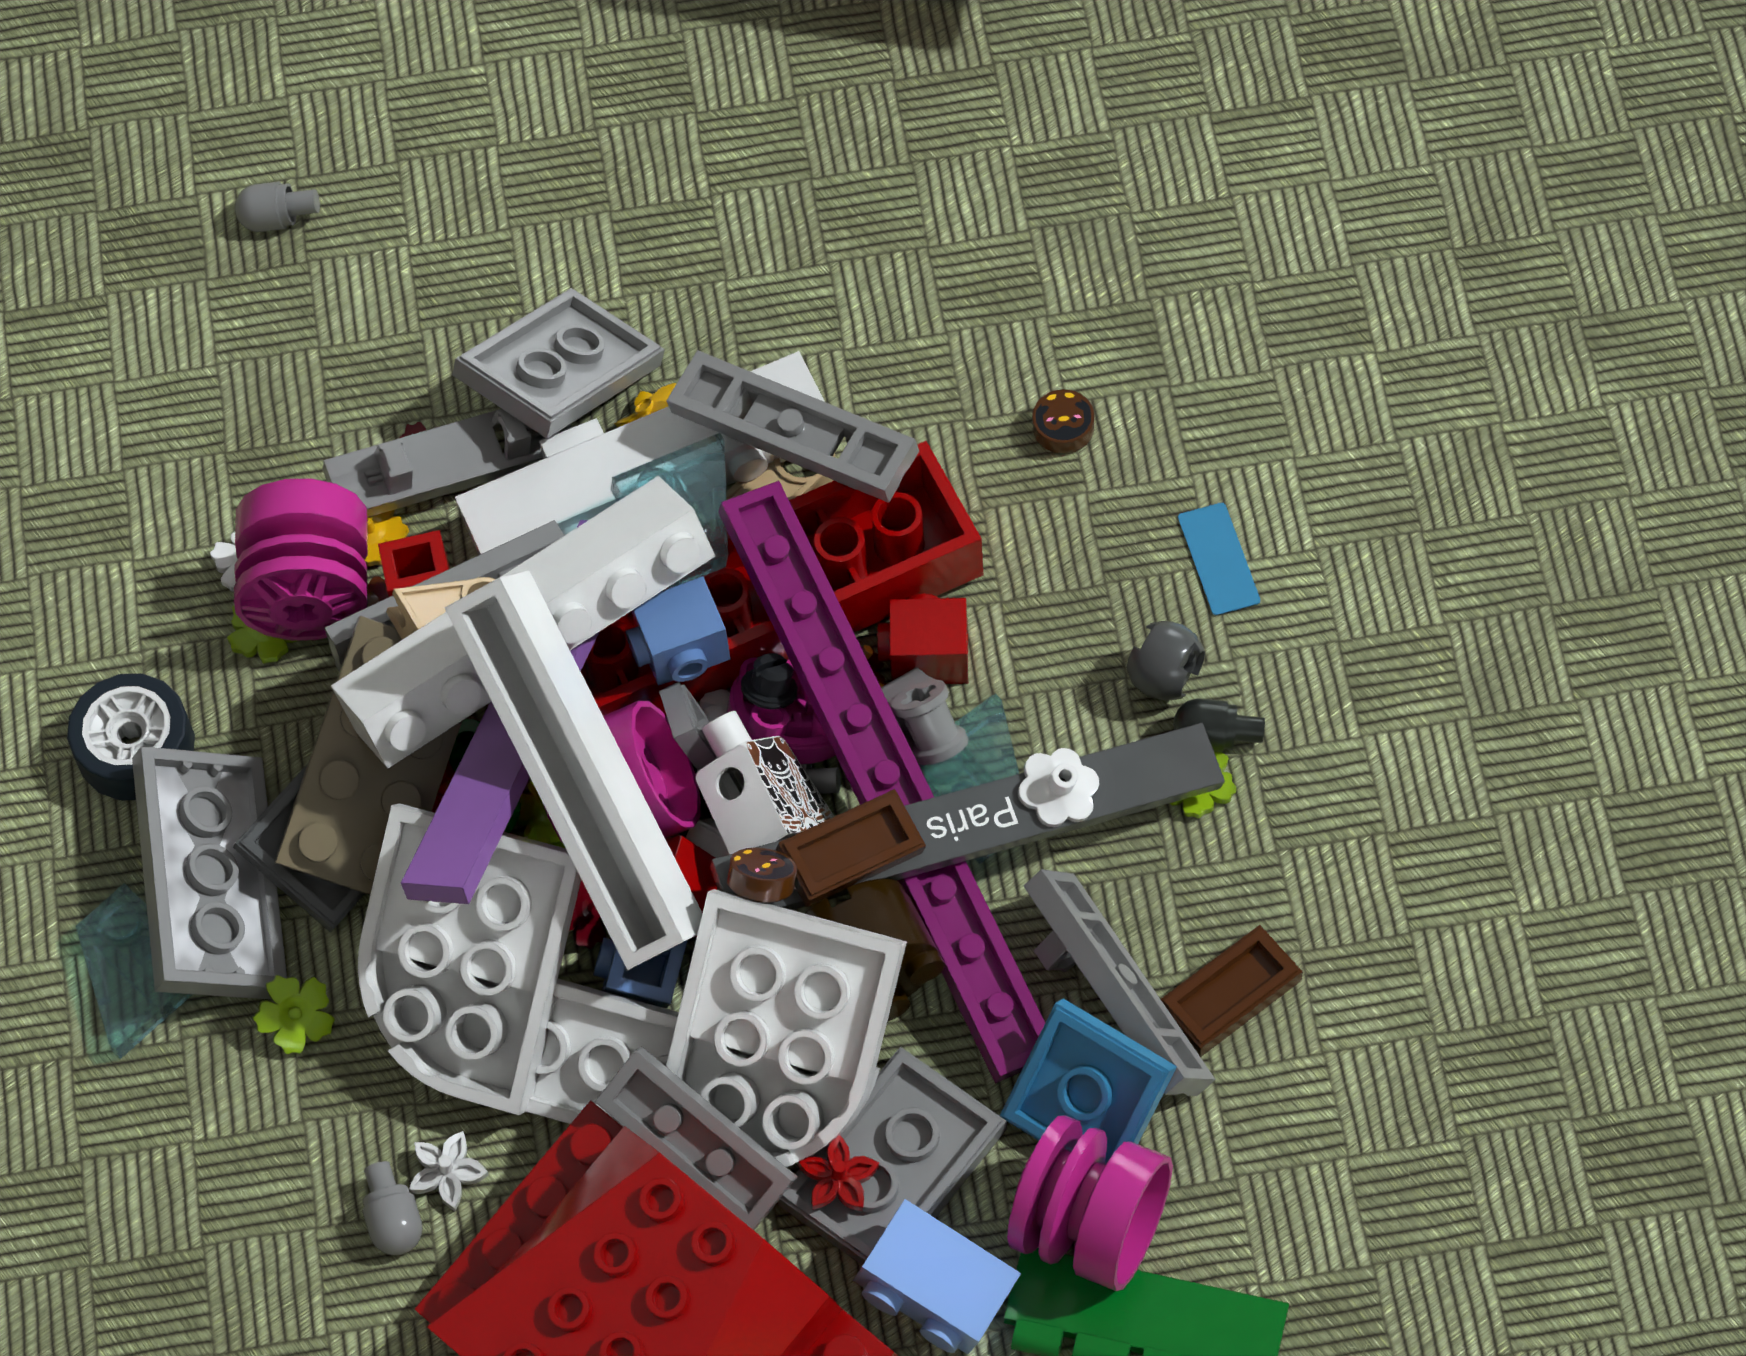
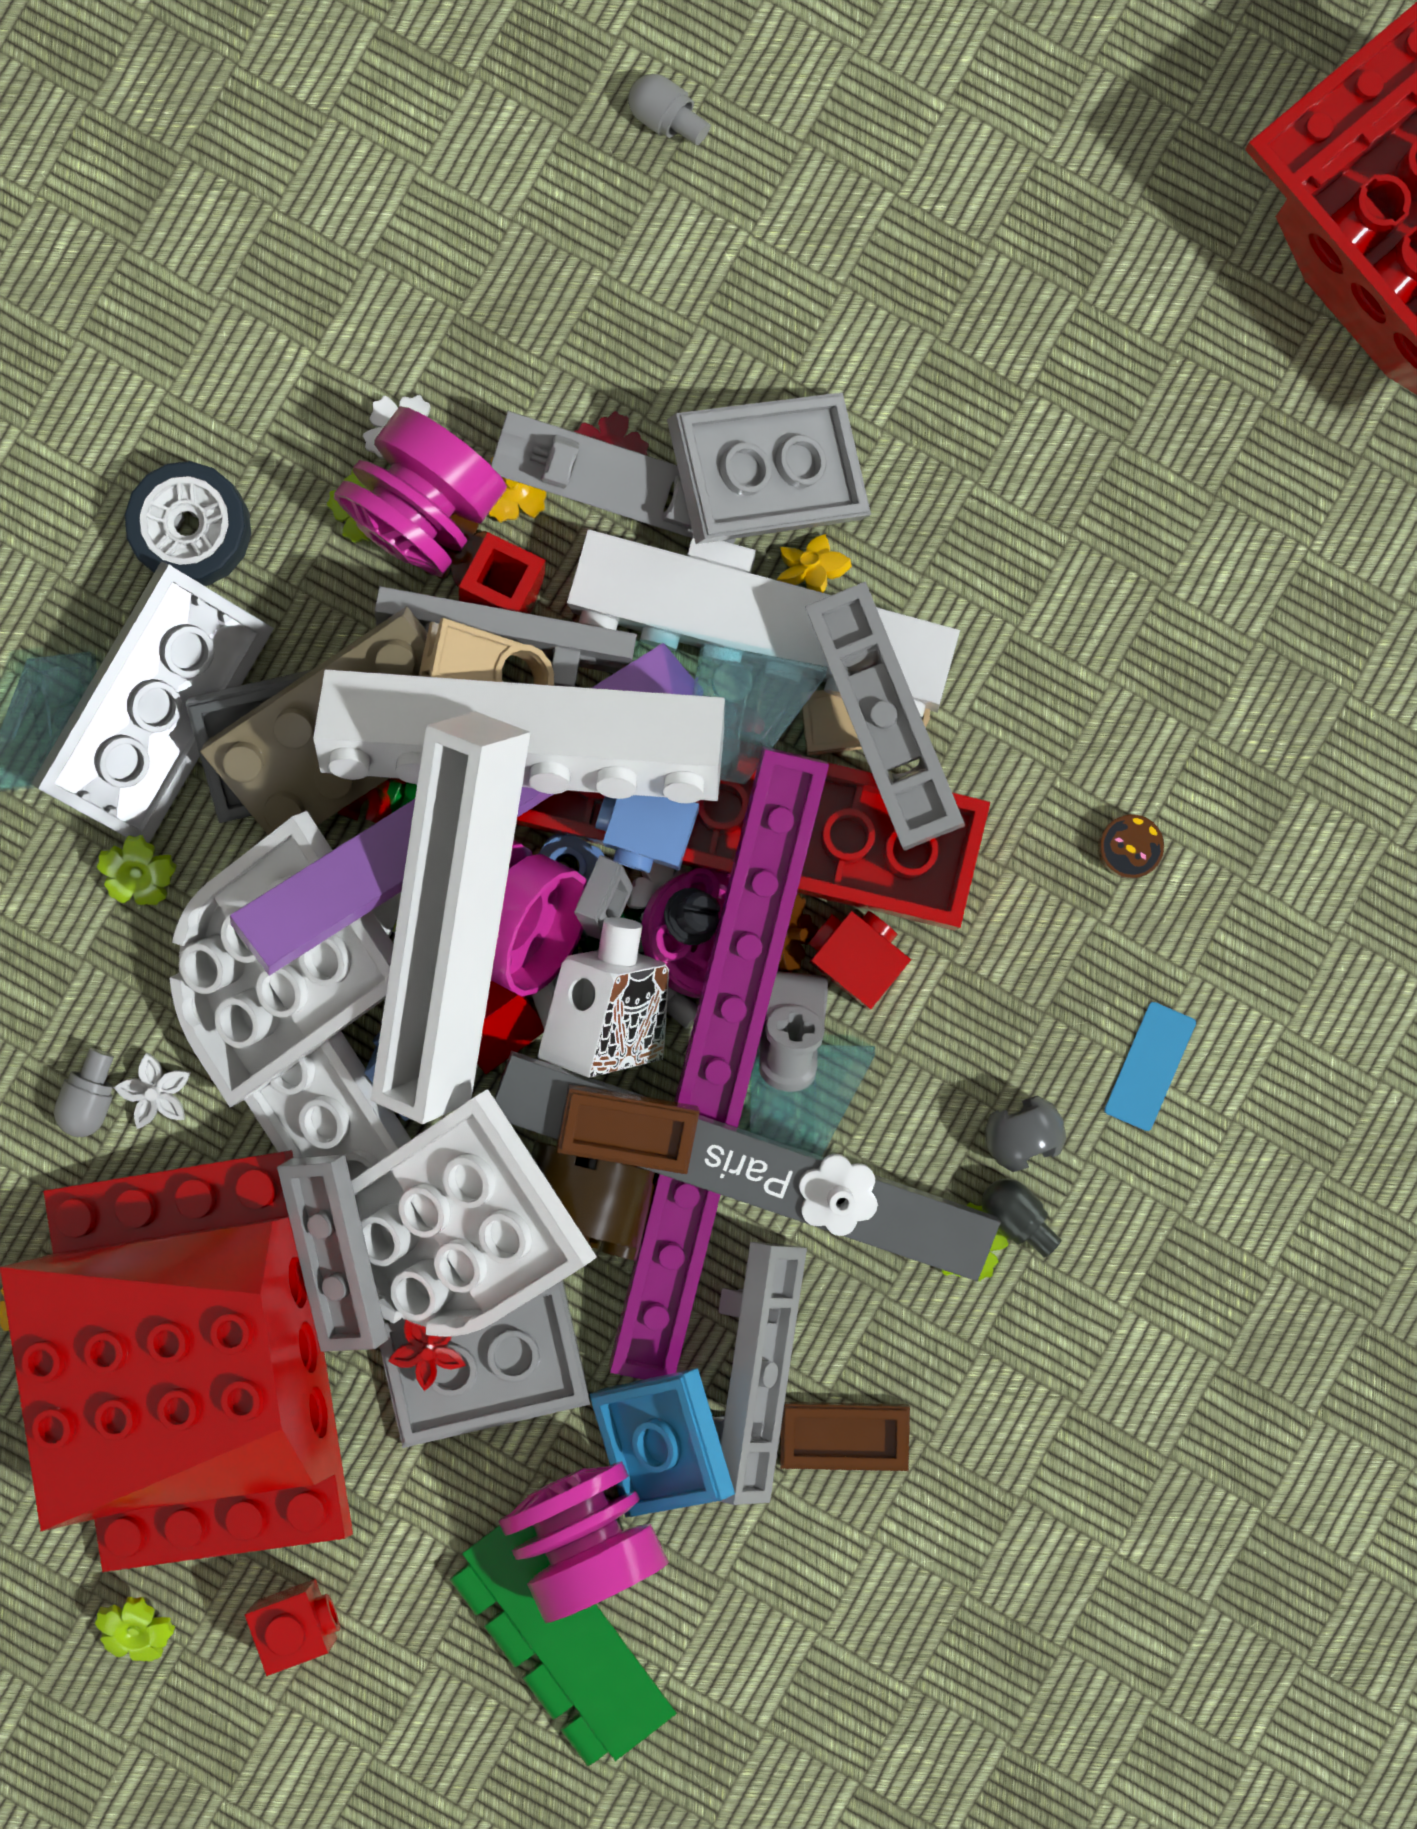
camera: 35 degrees right, 25 degrees up
(761, 875) = (533, 1108): reddish brown tile -> none
(935, 1279) = (429, 1495): light blue brick -> none

